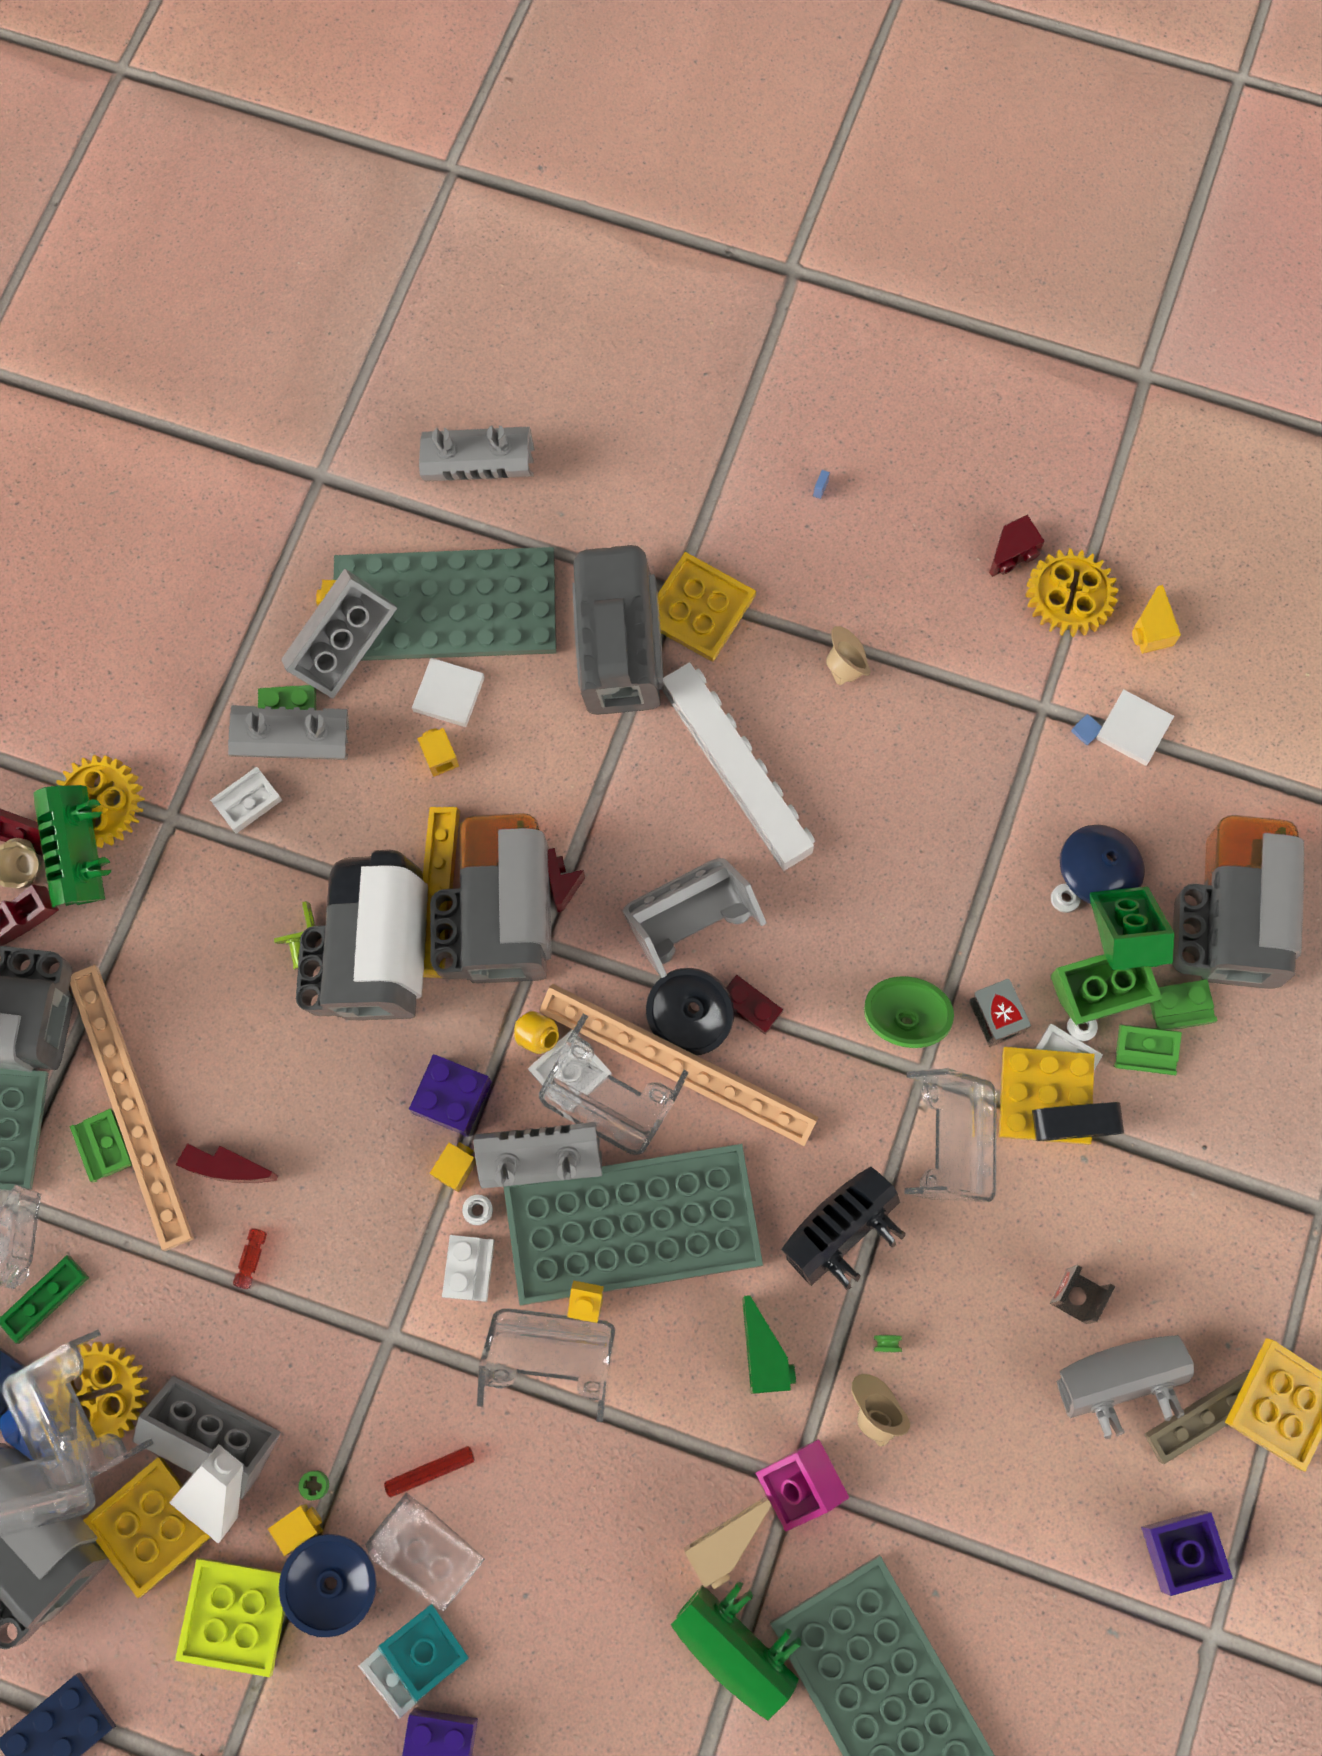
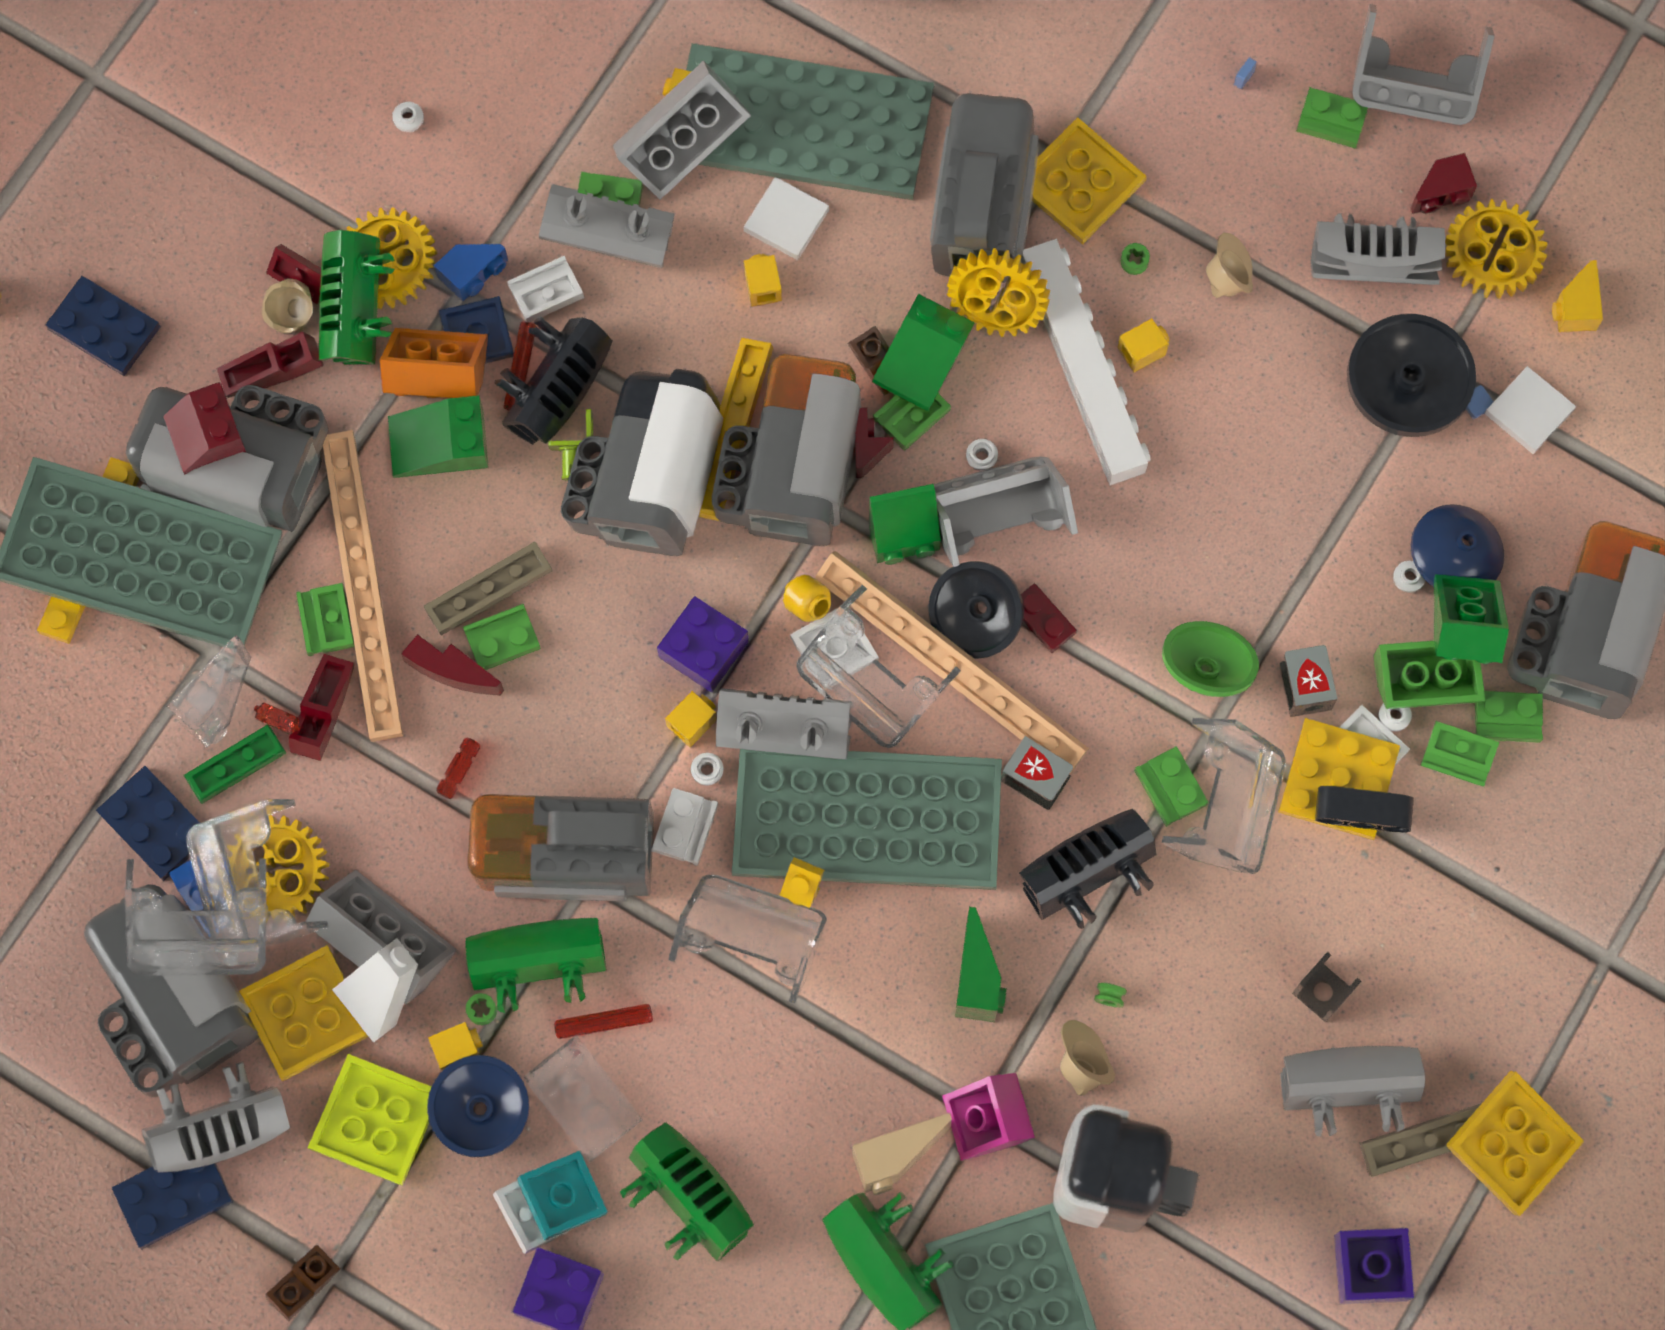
camera: 10 degrees right, 0 degrees up
(72, 1250) = (277, 718): none -> clear red axle
(82, 1669) = (218, 1131): none -> light grey piece
(97, 677) = (412, 123): none -> white plate
(112, 1229) = (321, 707): none -> dark red slope
(157, 888) = (433, 363): none -> orange slope
(174, 793) = (469, 266): none -> blue slope
(175, 955) = (439, 438): none -> green slope
(192, 852) = (481, 318): none -> dark blue tile
(236, 880) = (521, 357): none -> clear red axle
(245, 1084) = (487, 588): none -> dark tan plate
(267, 1127) = (502, 637): none -> bright green plate
(273, 882) = (558, 382): none -> black piece
(351, 1423) = (535, 954): none -> green piece
(356, 1317) = (561, 846): none -> piece
(545, 1621) = (691, 1190): none -> green piece
(556, 802) = (870, 351): none -> reddish brown slope
(593, 788) = (923, 352): none -> green slope
(595, 843) = (907, 421): none -> bright green plate
(610, 948) = (904, 524): none -> green slope
(629, 715) = (978, 282): none -> yellow gear
(660, 860) = (982, 445): none -> white plate
(762, 657) = (1138, 250): none -> bright green bush
(777, 1150) = (1036, 773): none -> piece
(786, 739) = (1143, 344): none -> yellow brick
(899, 1134) = (1171, 786): none -> bright green plate
(904, 507) = (1332, 118): none -> bright green plate
(937, 1528) = (1119, 1172): none -> black piece
(972, 616) = (1377, 252): none -> light grey piece
(973, 471) = (1414, 91): none -> light grey windscreen
(1026, 718) = (1411, 375): none -> black dish

